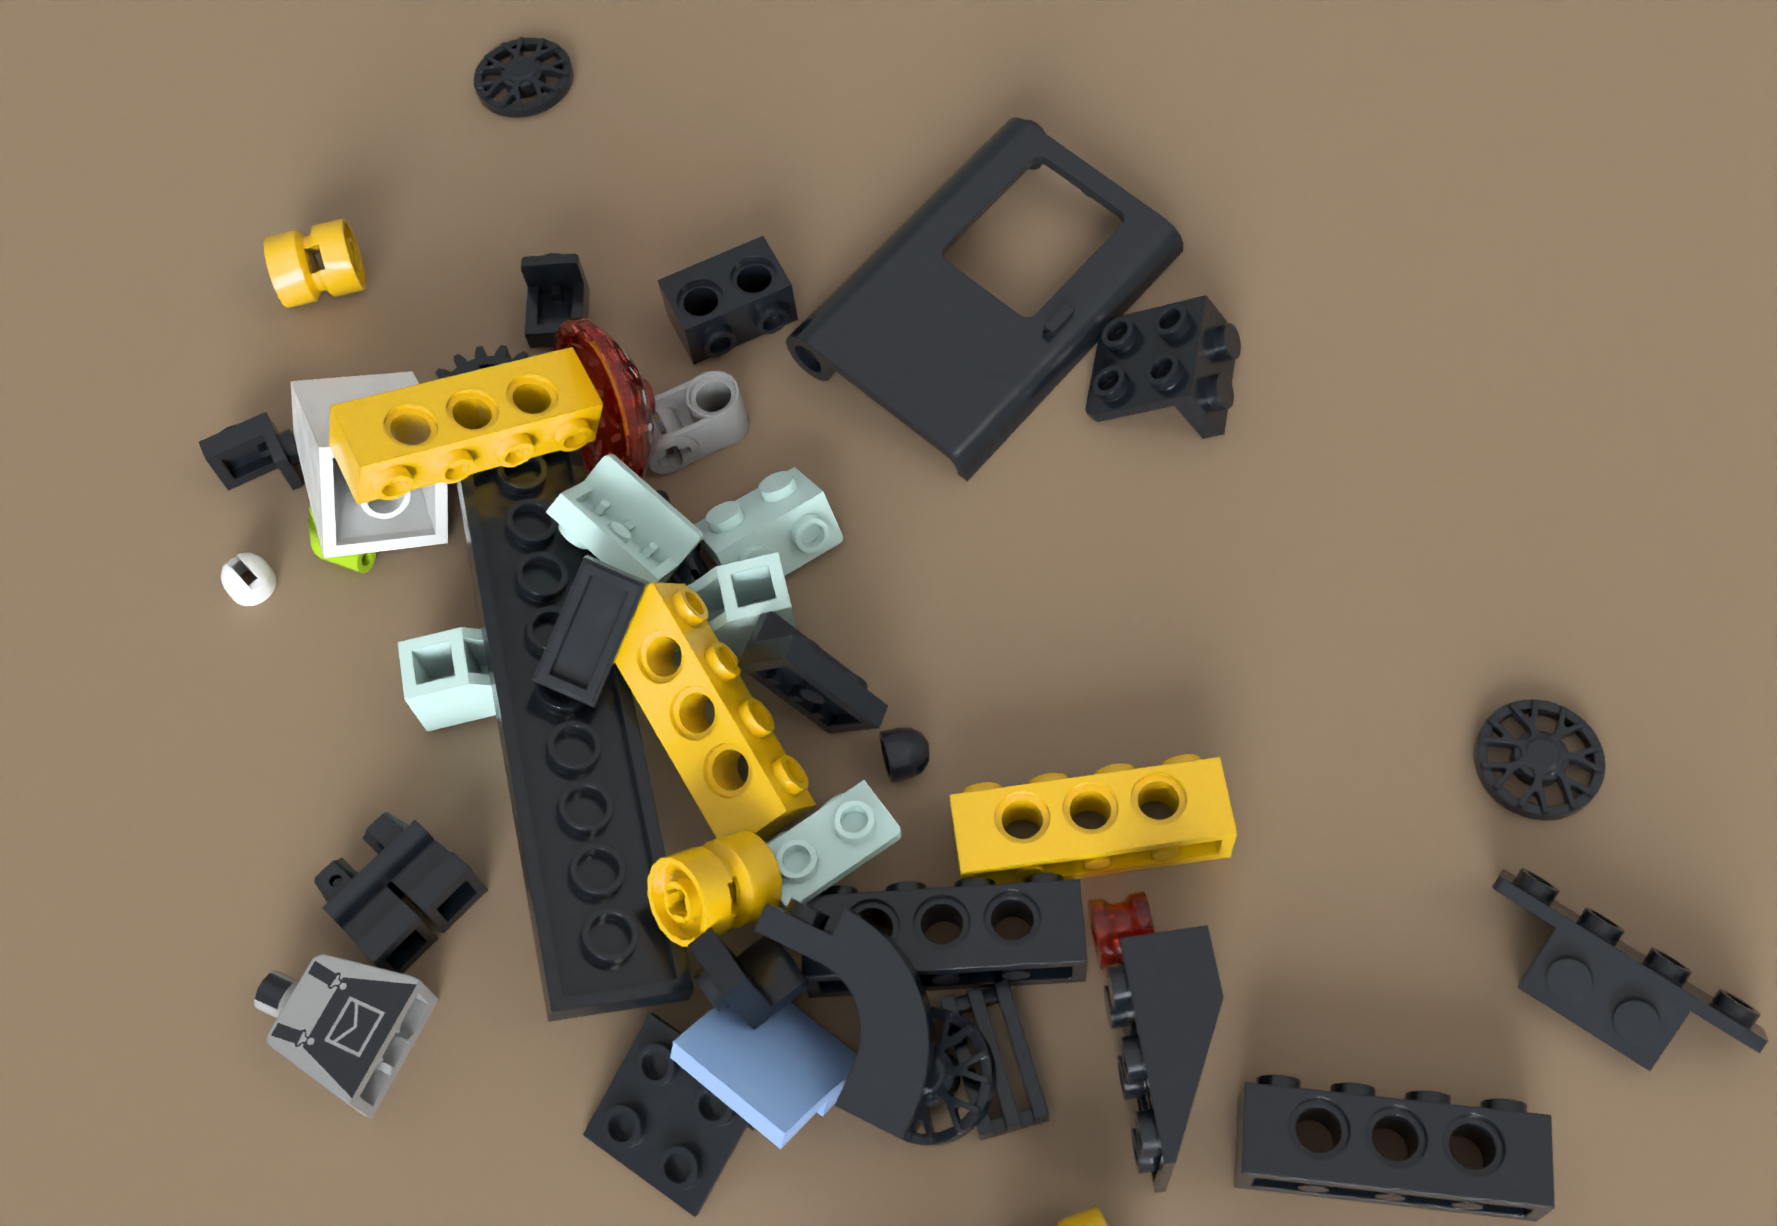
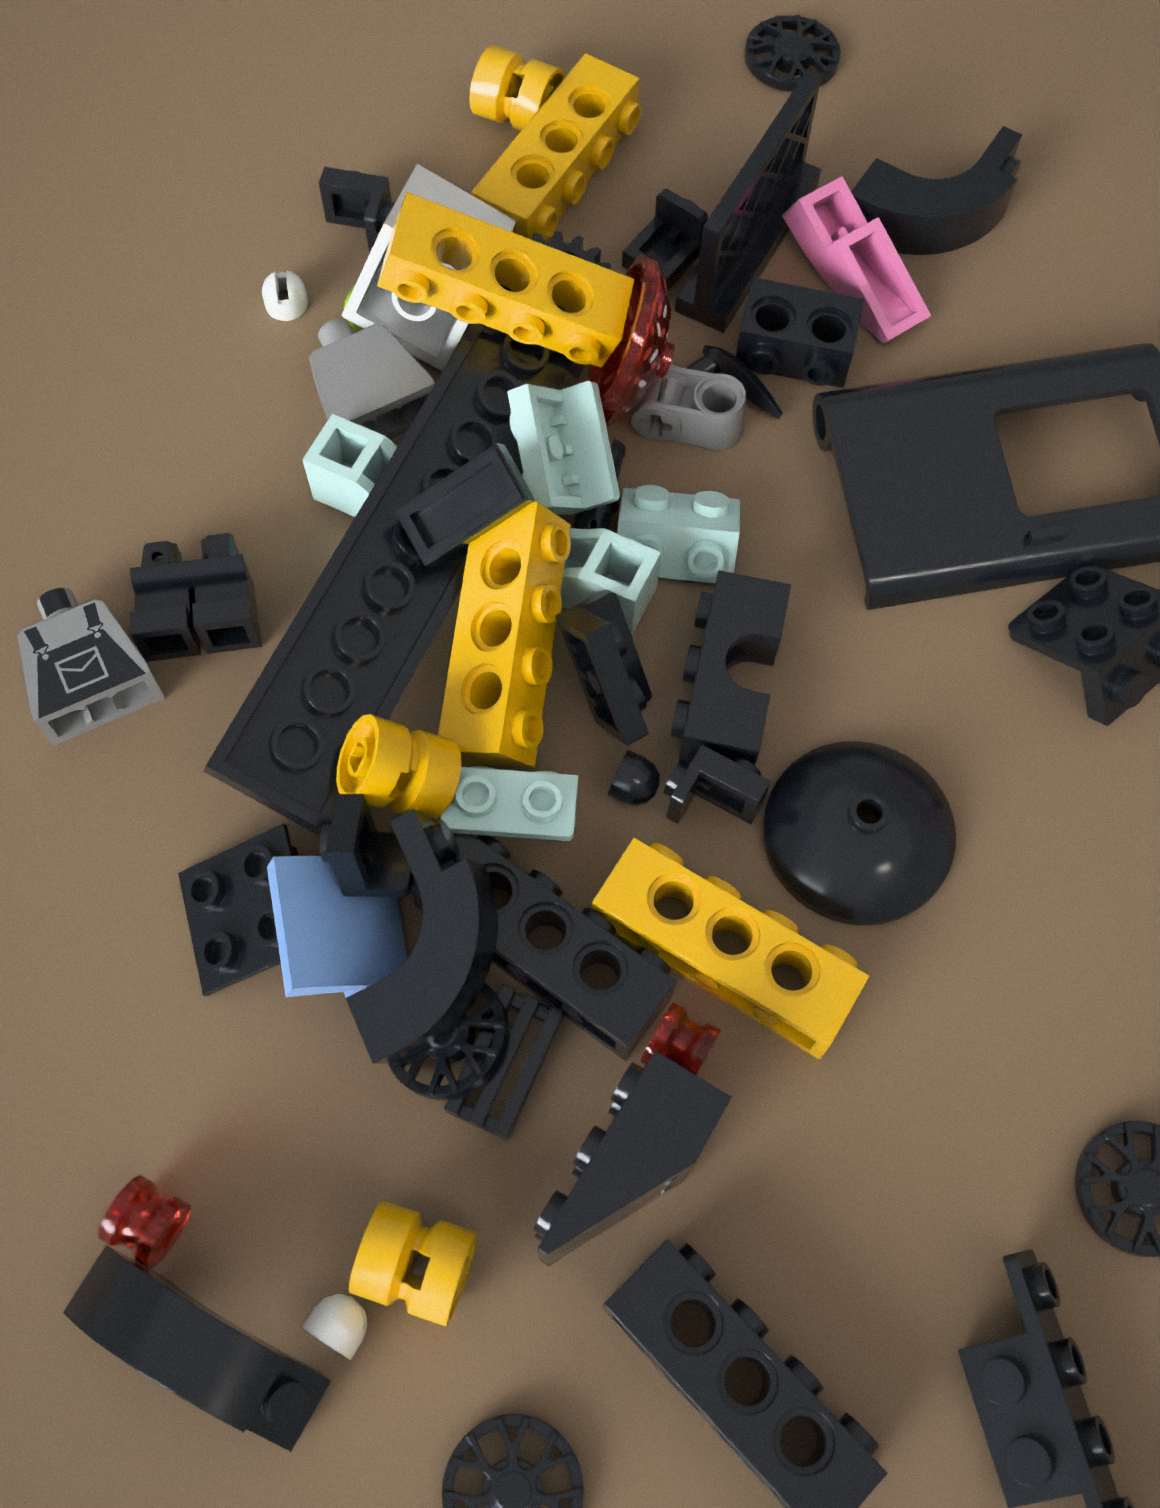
camera: 30 degrees right, 5 degrees up
(394, 594) = (368, 378): none -> light grey torso
(397, 283) = (562, 147): none -> yellow brick
(615, 233) = (749, 218): none -> black fence
(687, 367) = (723, 362): none -> black bar
(724, 208) = (856, 259): none -> bright pink slope
(754, 134) = (942, 213): none -> black arch
(930, 651) = (741, 625): none -> black arch
(974, 700) = (723, 781): none -> black bracket
(1110, 690) = (854, 867): none -> black dish

